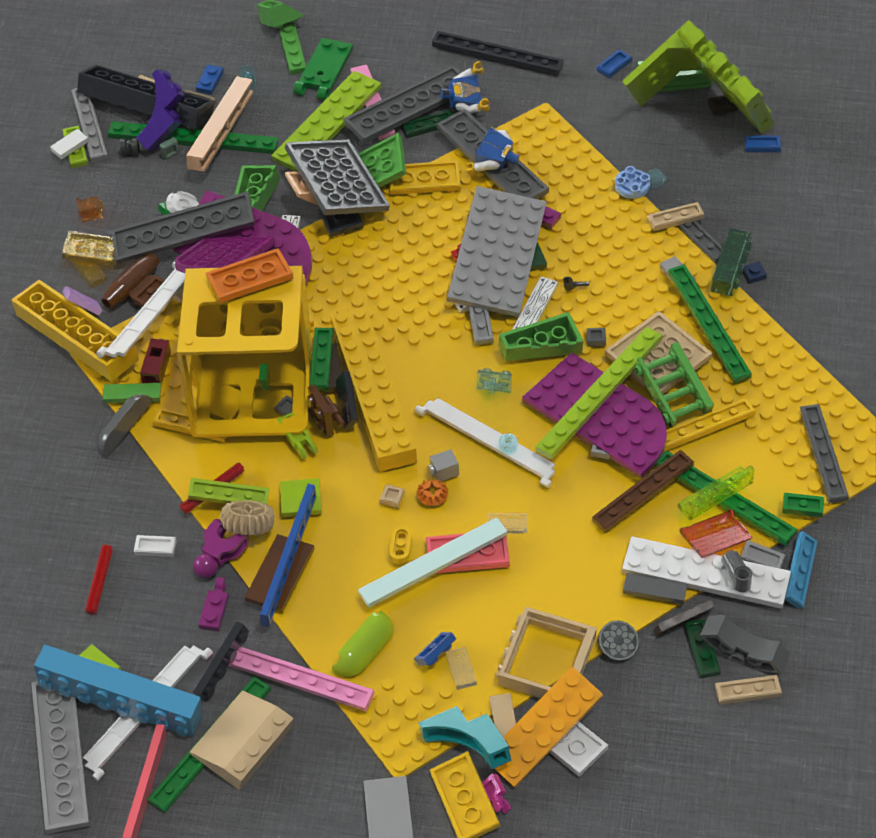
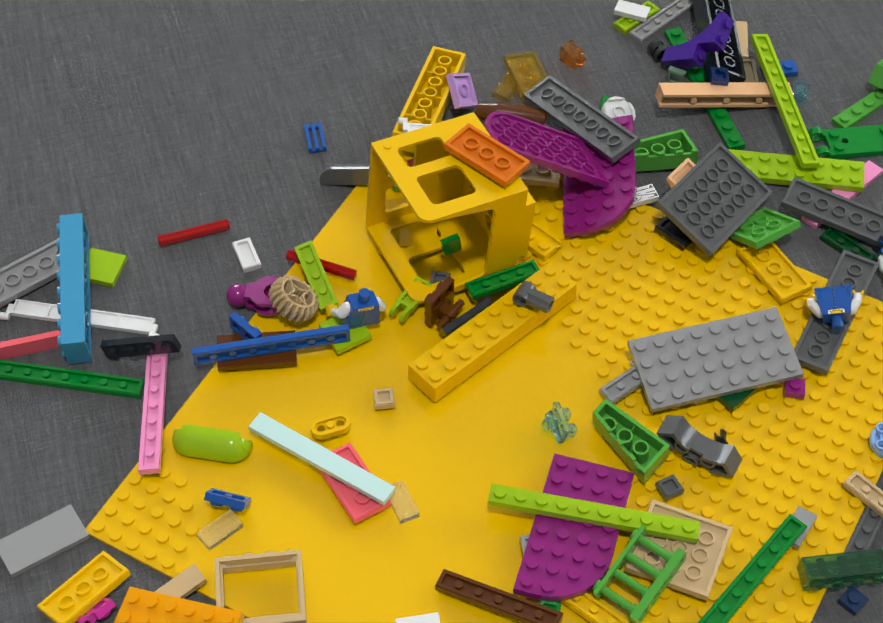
camera: 60 degrees right, 0 degrees up
(47, 438) = (314, 127): none -> blue tile
(206, 114) = (719, 76): none -> clear blue tile
(214, 607) = (204, 321): magenta plate -> none
(242, 738) = (73, 397): tan slope -> none
(258, 568) = (242, 327): none -> blue plate
(259, 85) = (785, 101): none -> lime plate
(295, 471) = (358, 309): none -> blue torso
(364, 340) = (529, 295): none -> dark grey piece
(425, 495) = (403, 434): orange gear -> none
(443, 465) = (436, 422): light grey brick -> none
(476, 734) = (144, 568): teal arch -> none
(488, 437) = (493, 448): white piece -> none
(508, 444) = (489, 463): clear light blue piece -> none
(537, 302) = (700, 420): white tile -> none
(576, 299) = (699, 449): none -> dark grey brick

